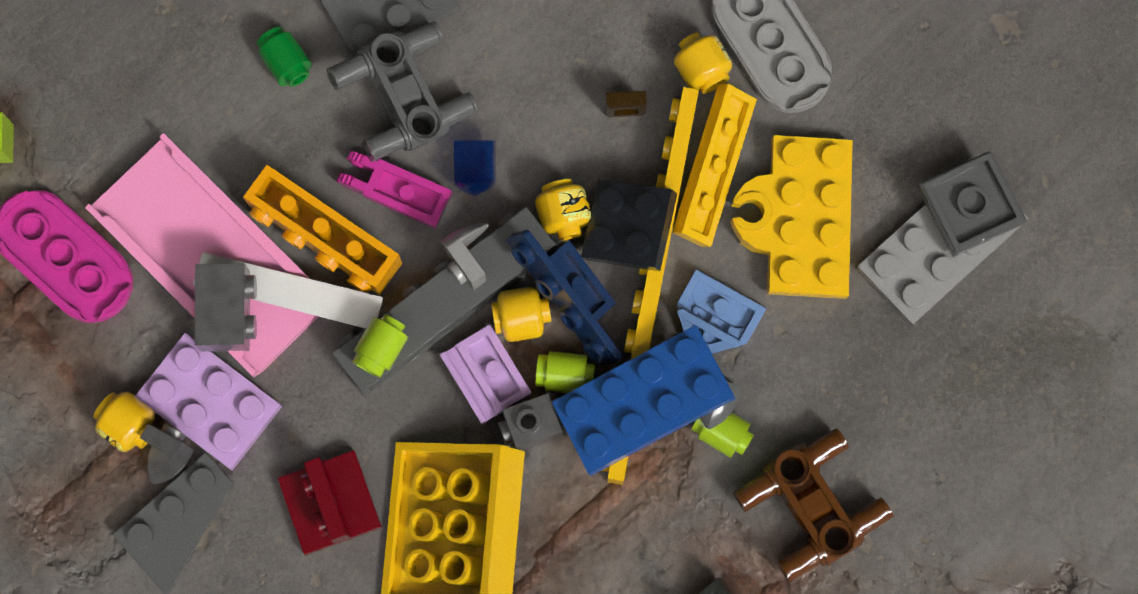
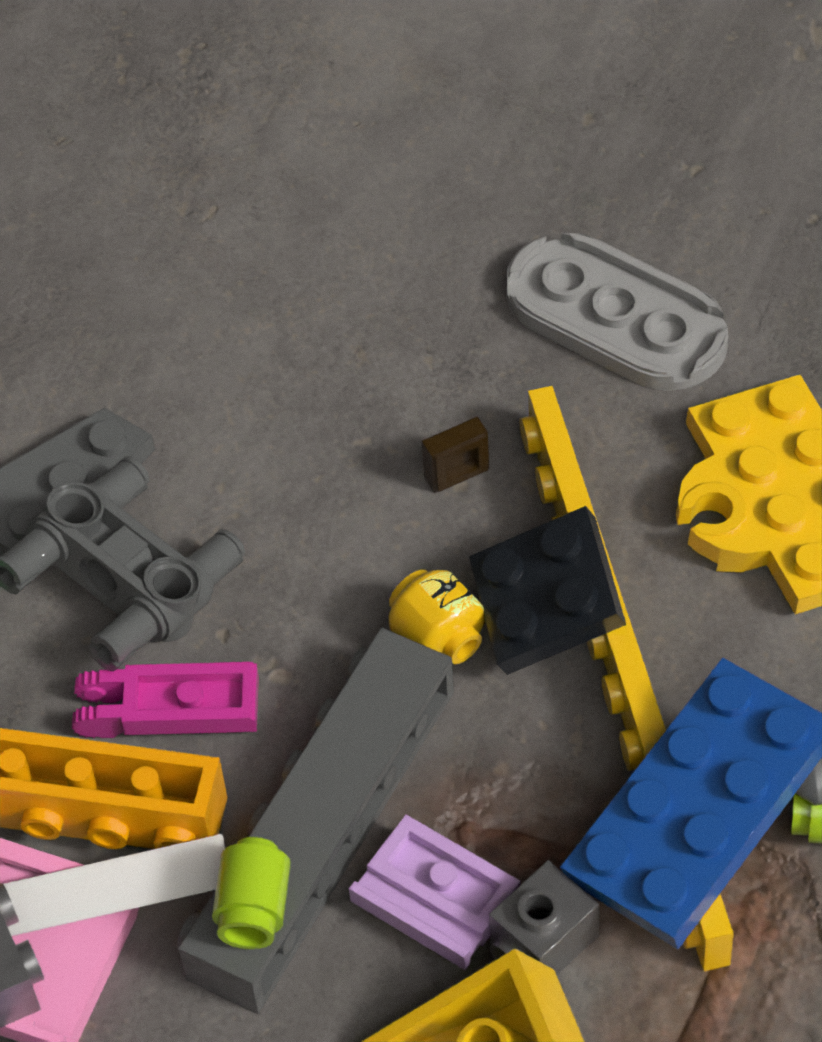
camera: 20 degrees left, 25 degrees down
(463, 264) = (323, 722): light grey plate -> none
(474, 165) = (275, 620): clear blue plate -> none
(520, 314) = (446, 781): yellow head -> none
(563, 371) = (549, 831): lime brick -> none
(572, 289) = (505, 714): dark blue bracket -> none
(703, 62) = (538, 357): yellow head -> none
(714, 165) = (626, 481): yellow plate -> none
(719, 312) = (763, 648): medium blue slope -> none

